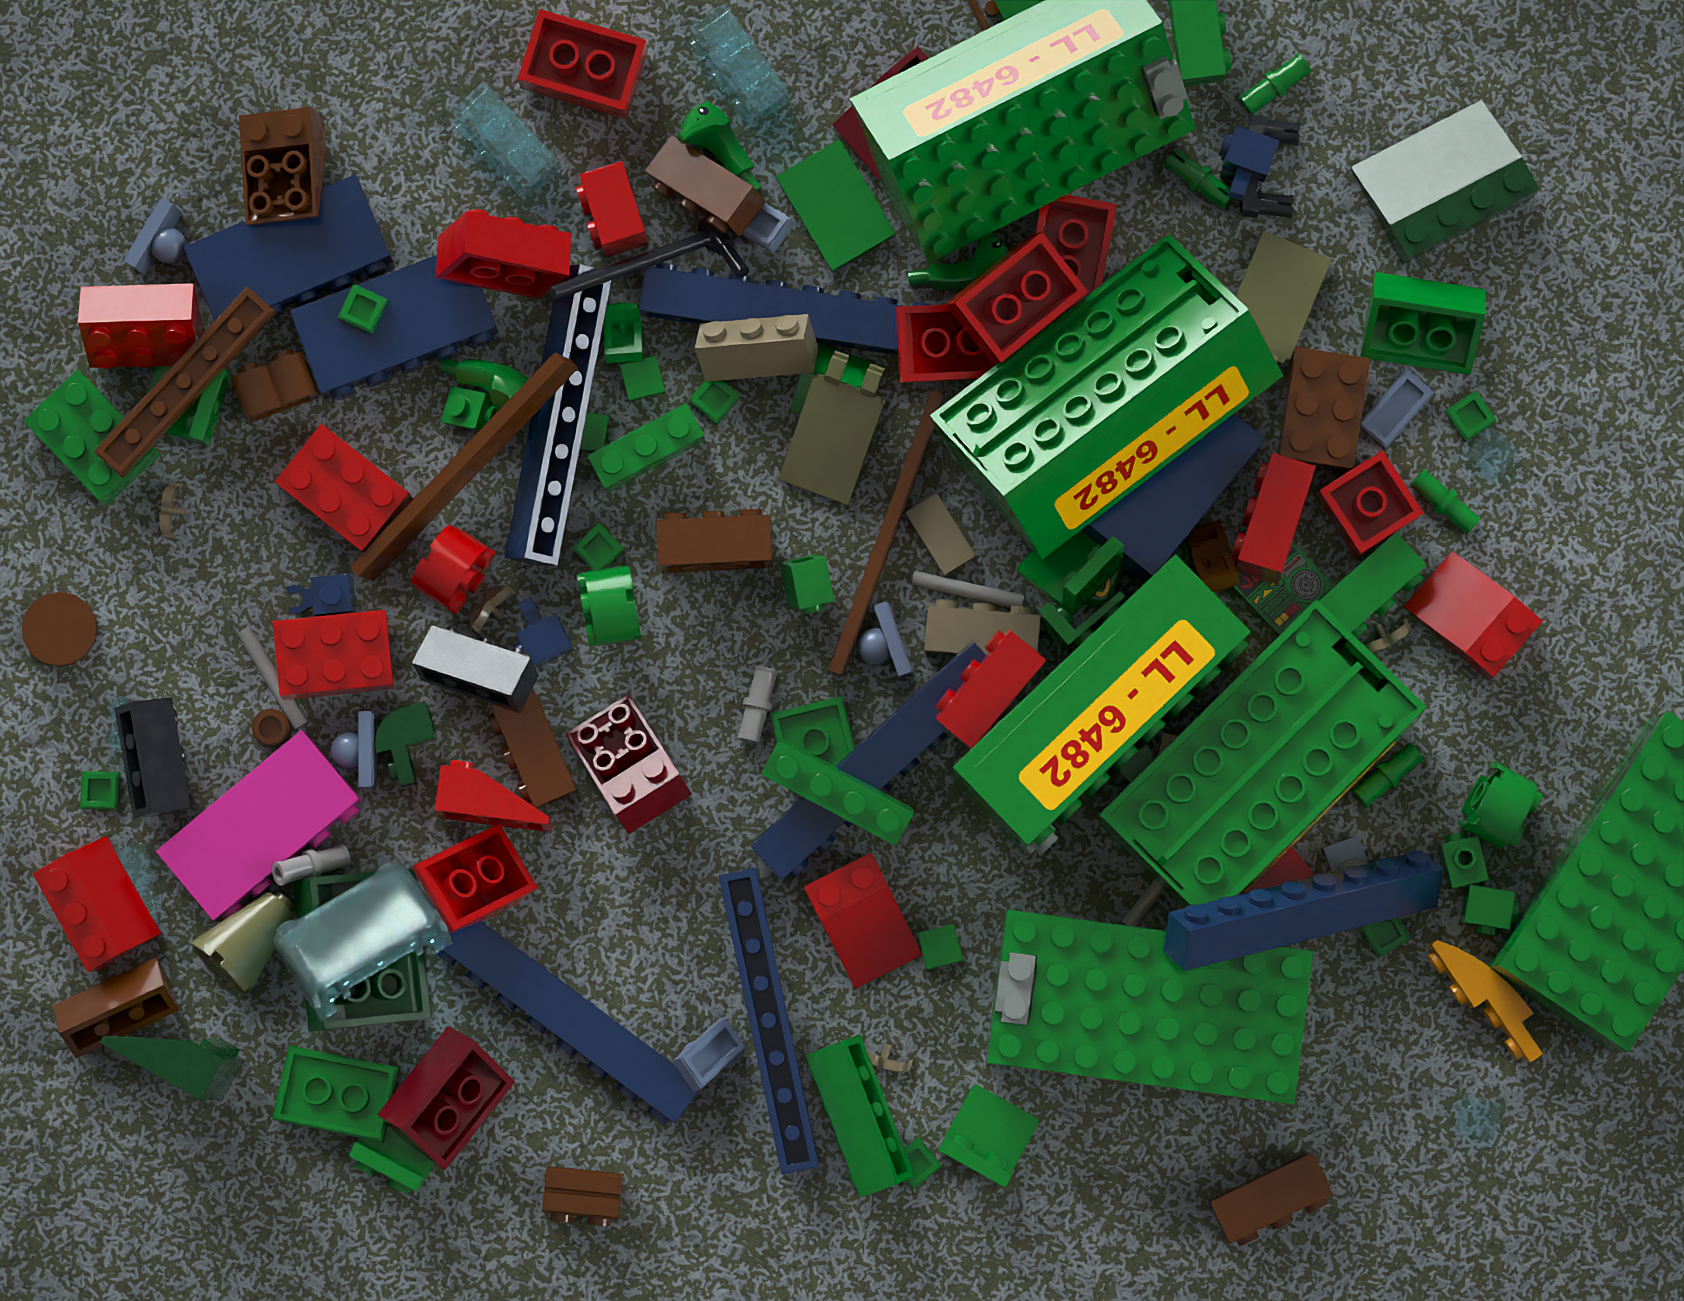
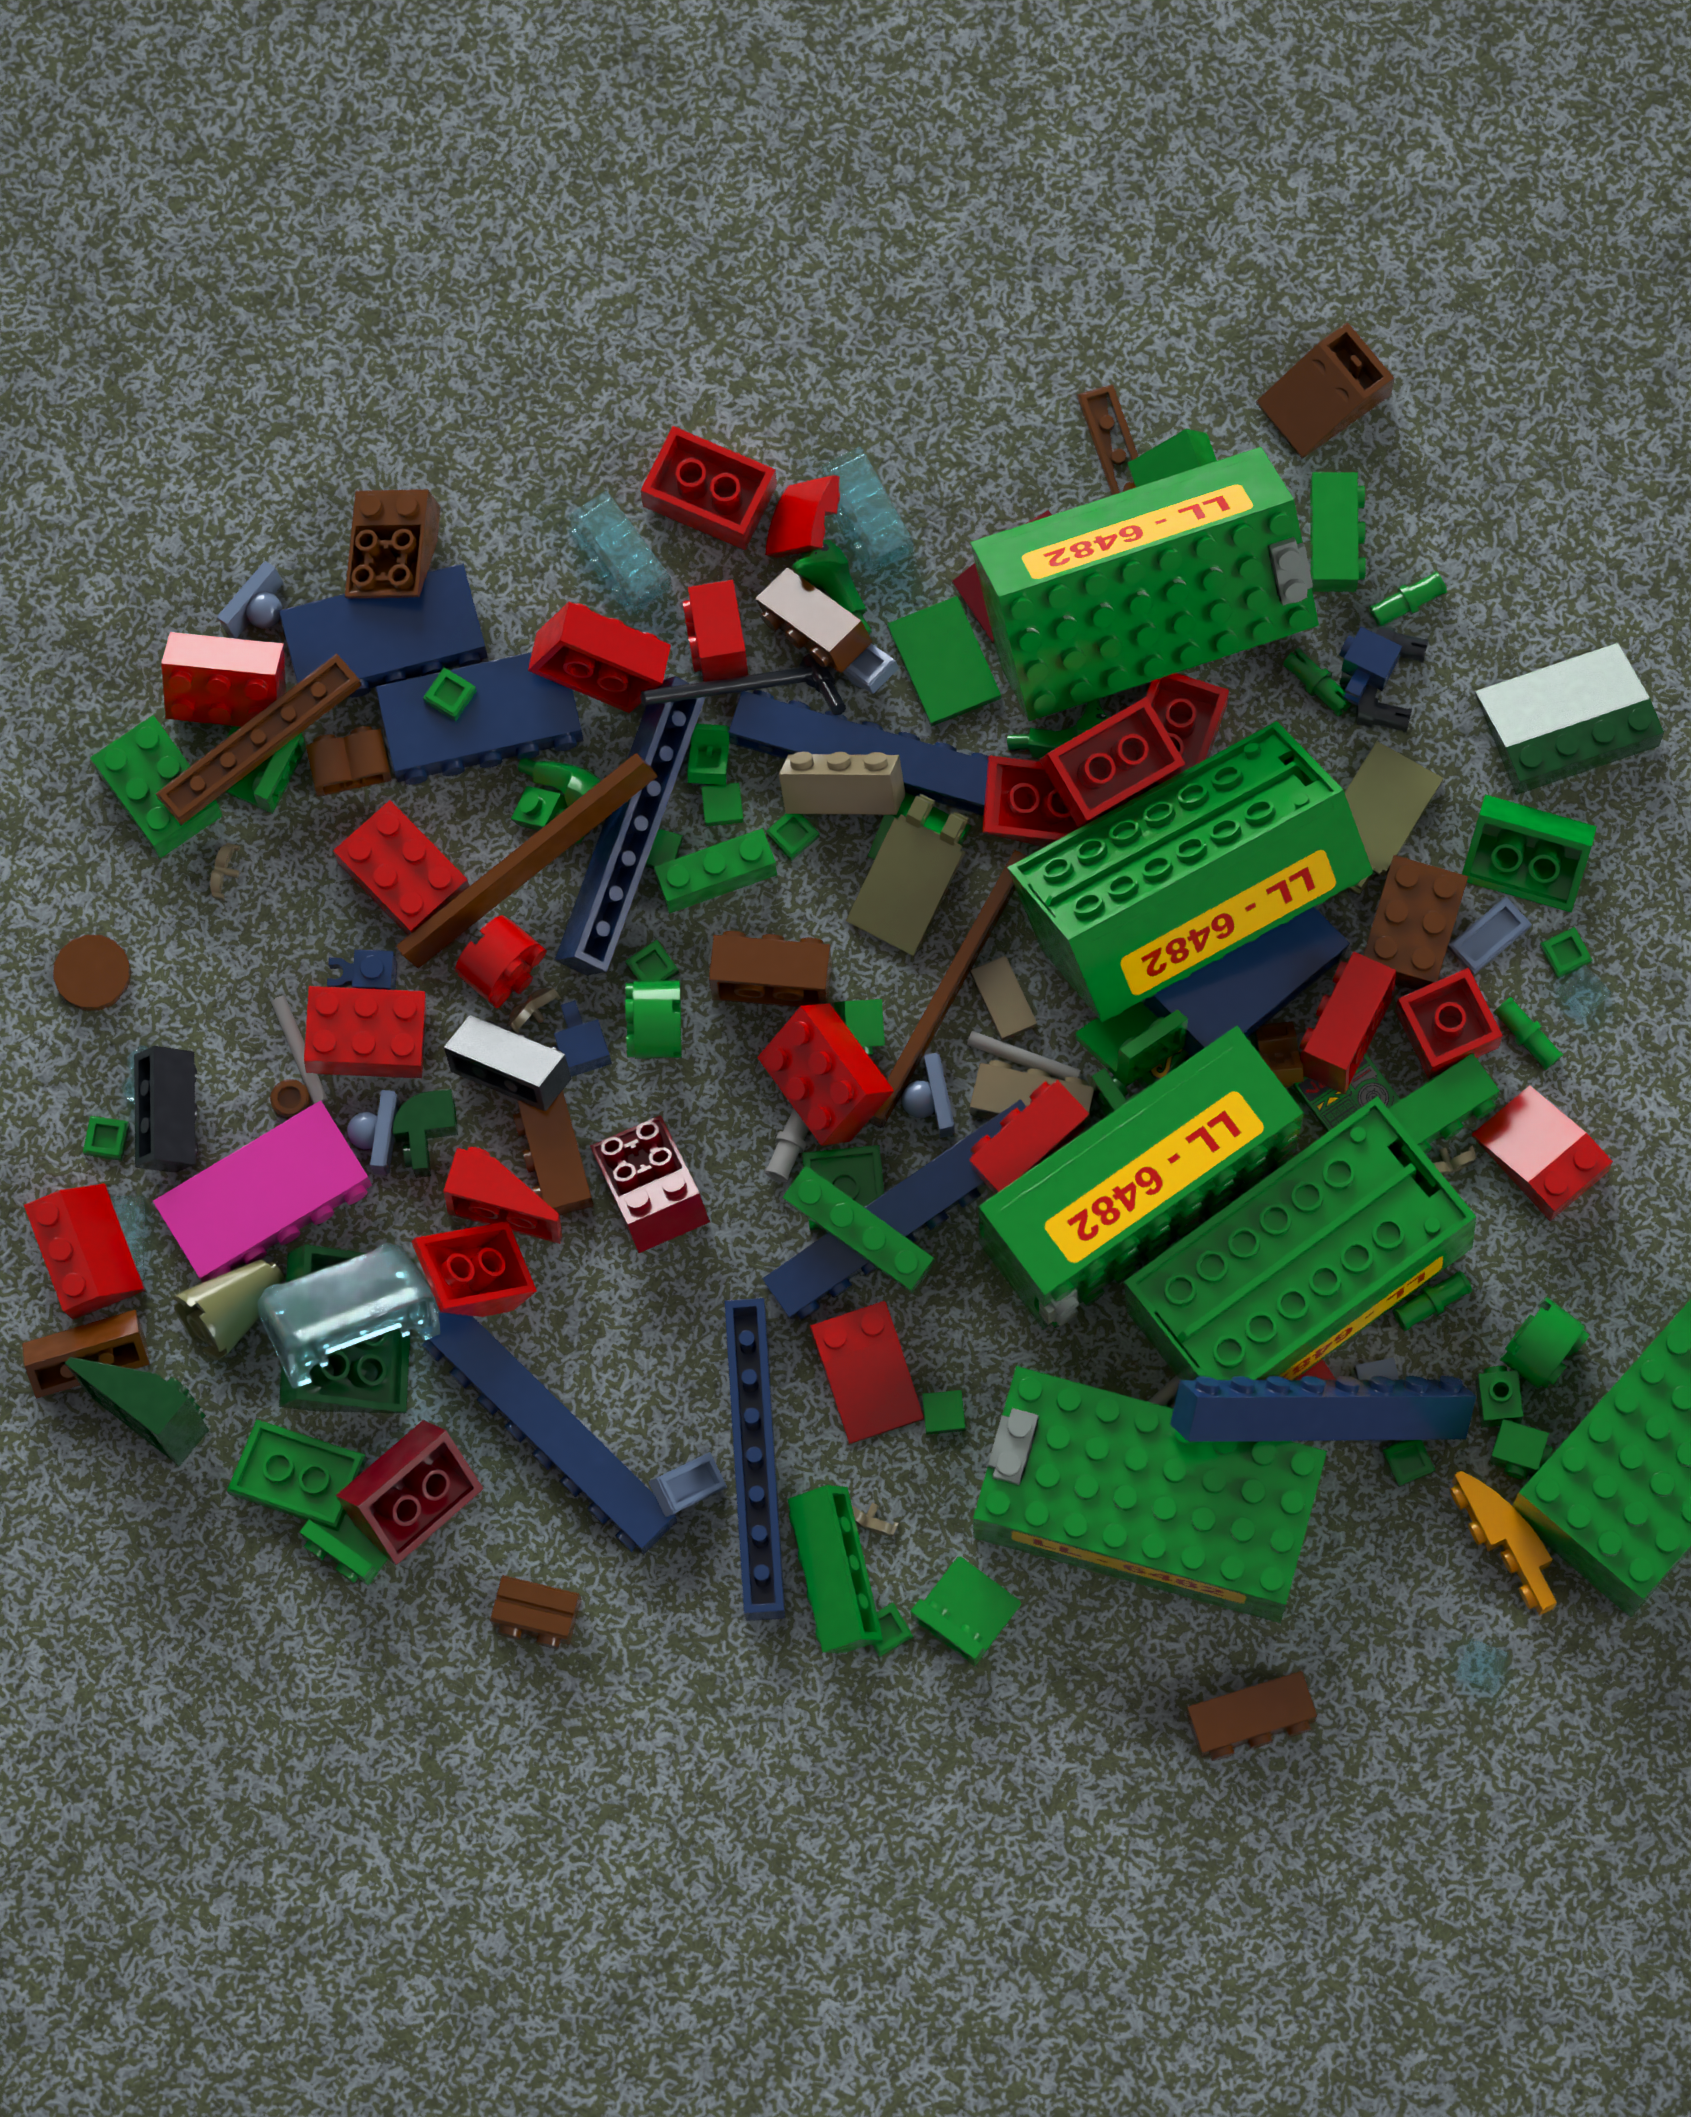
camera: 10 degrees right, 10 degrees down
(311, 864) = (310, 1234): light grey pin -> none
(676, 82) = (800, 516): none -> red slope
(782, 639) = (825, 1074): none -> red brick

